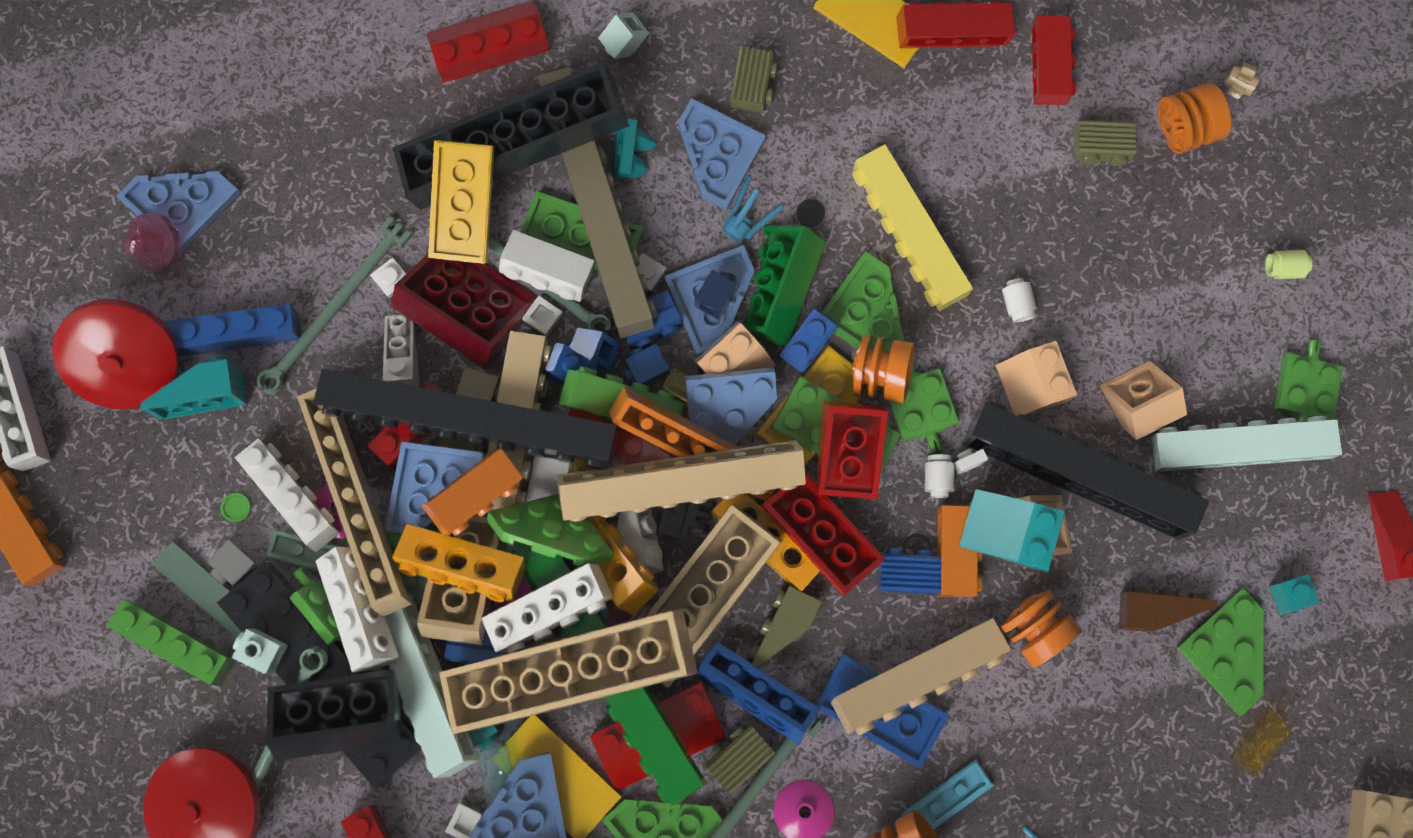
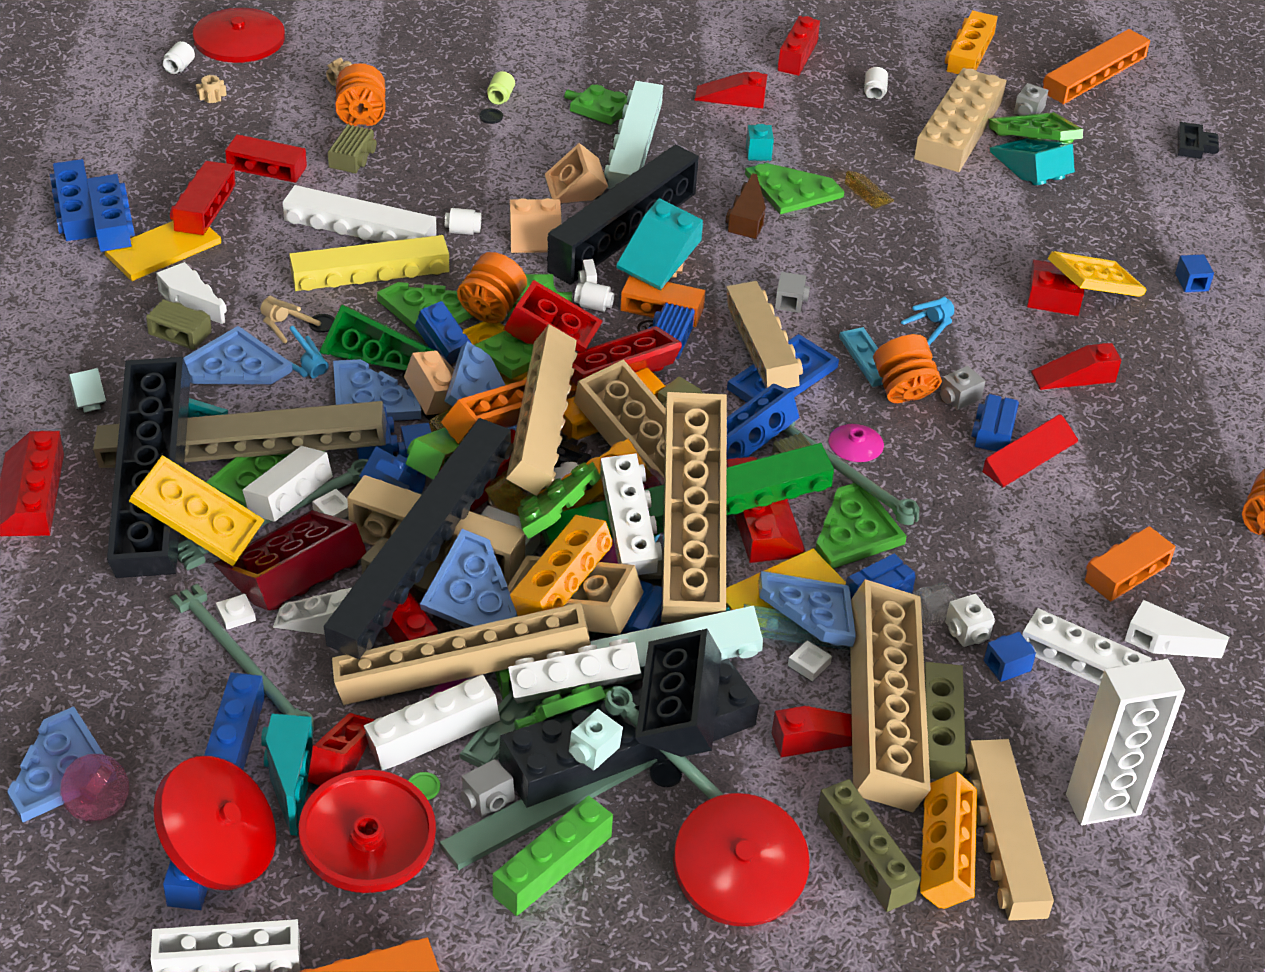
camera: 75 degrees left, 35 degrees down
(156, 478) = (367, 831): none -> red dish
(247, 426) = (339, 749): none -> red slope
(472, 493) = (499, 532): orange brick -> none
(716, 294) = (374, 377): dark blue brick -> none
(803, 163) = (278, 310): none -> tan plant
(806, 62) = (185, 286): none -> white slope
(982, 192) = (355, 216): none -> white brick
(1023, 692) = (791, 292): none -> light grey brick
(1041, 628) = (744, 260): orange wheel -> none
(1237, 269) = (491, 116): none -> black piece

